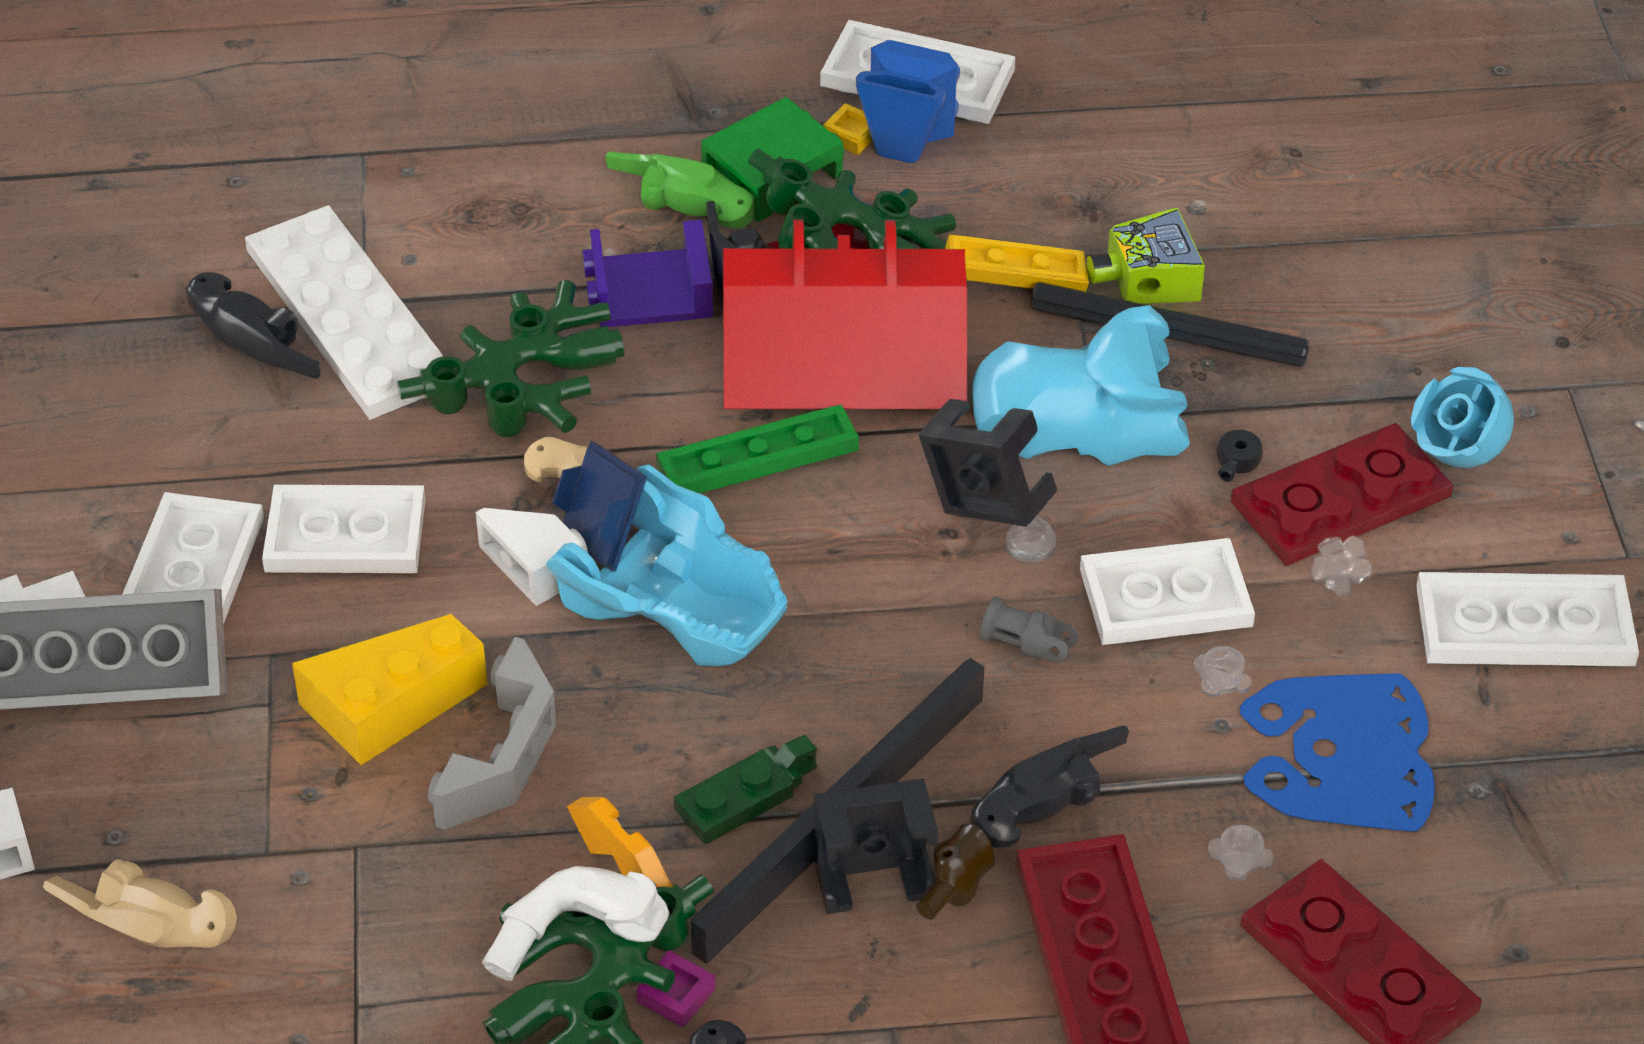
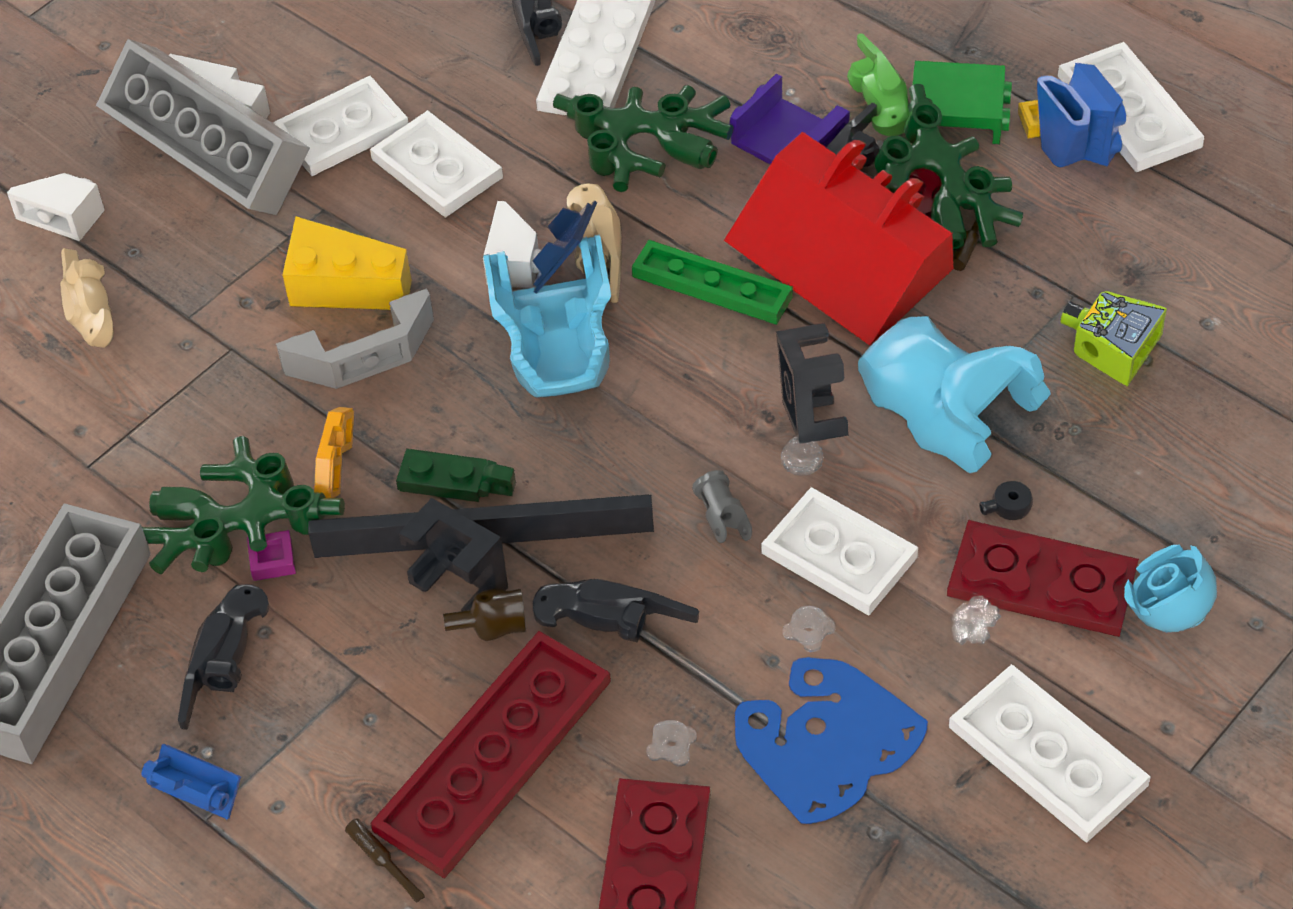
camera: 50 degrees right, 5 degrees up
(622, 901) = (271, 472): white piece -> none
(1020, 263) = (1021, 274): yellow tile -> none
(1182, 326) = (1079, 387): black axle -> none

